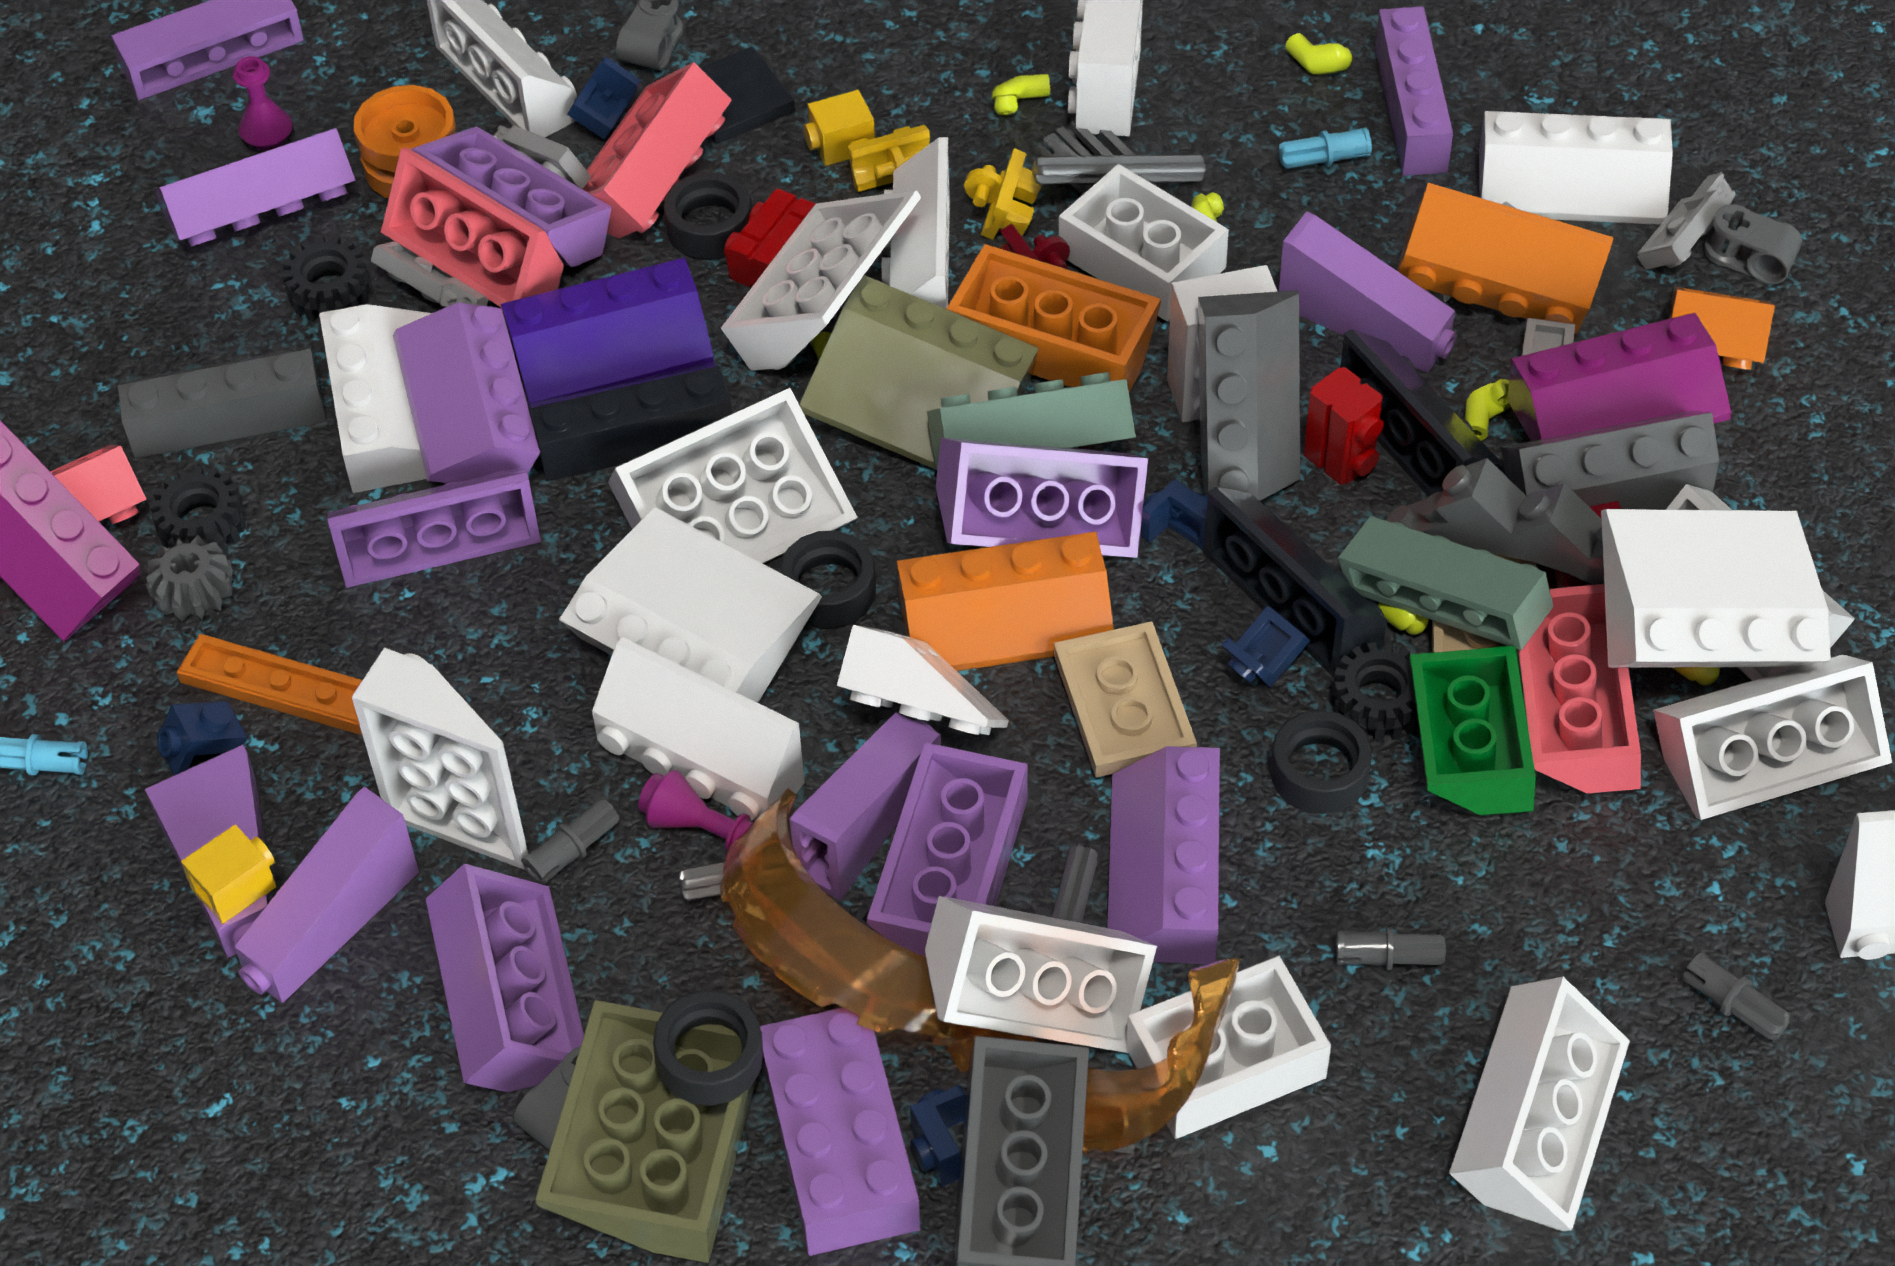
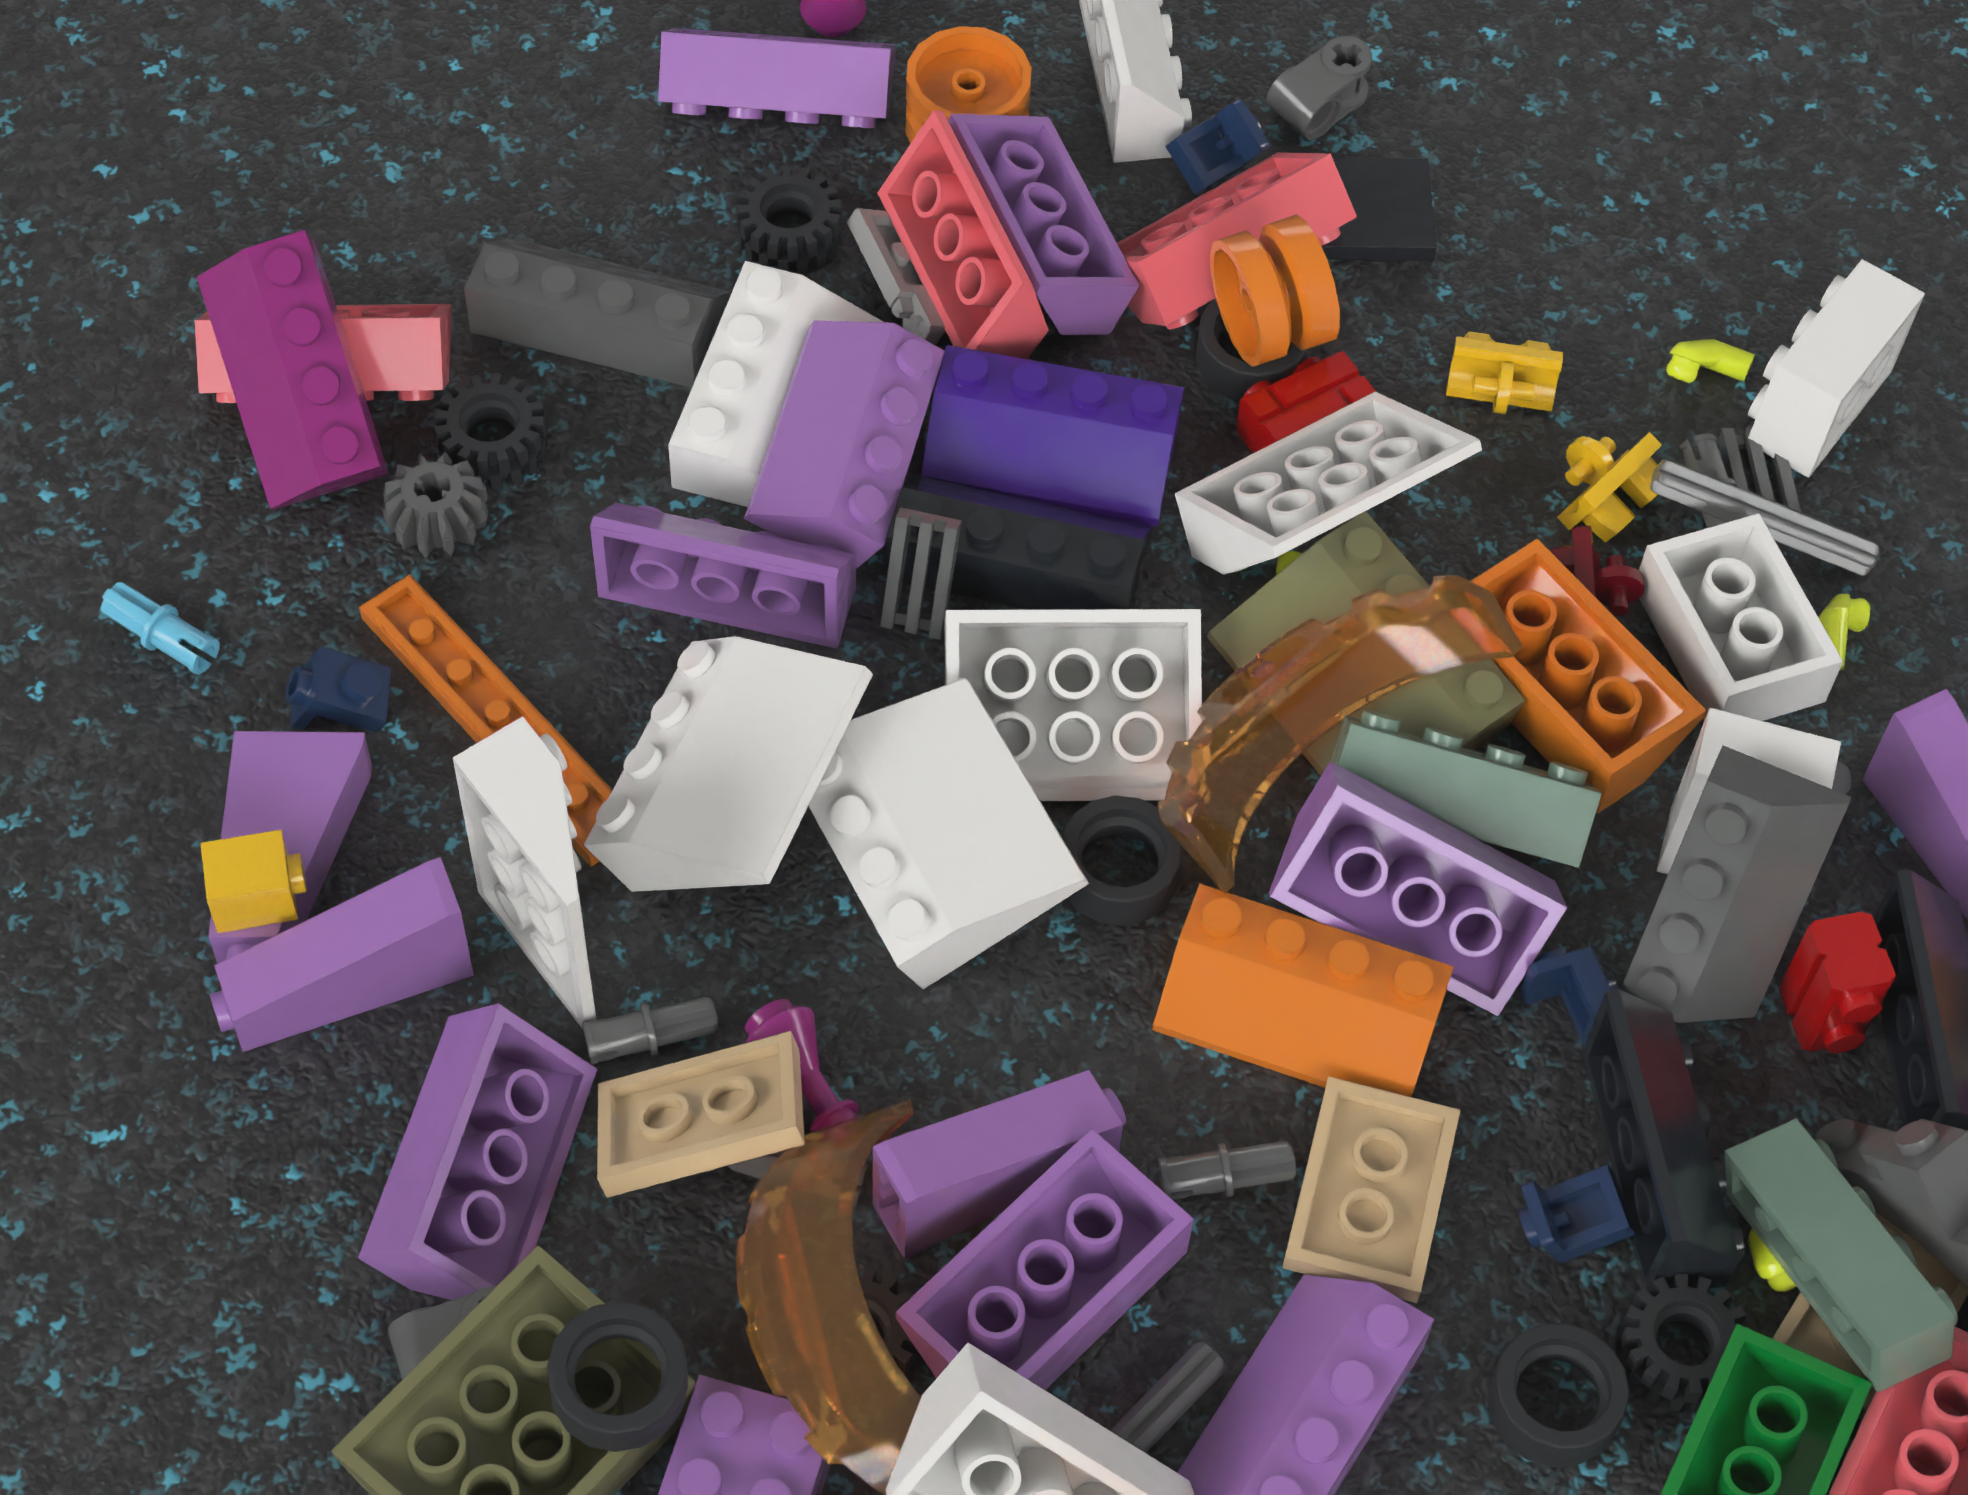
camera: 25 degrees right, 5 degrees up
(527, 634) = (725, 766): none -> white slope
(545, 152) = (1104, 185): light grey hinge -> none
(584, 496) = (912, 617): none -> dark grey tile
(647, 870) = (699, 1114): none -> tan plate
(696, 726) = (853, 978): white slope -> none
(712, 163) = (1275, 290): none -> orange wheel
(836, 124) = (1465, 302): yellow brick -> none
(892, 399) = (1304, 689): none -> clear orange windscreen
(908, 671) = (1135, 1042): white slope -> none
(922, 241) = (1476, 497): white slope -> none
(1023, 733) = (1226, 1169): none -> dark grey axle

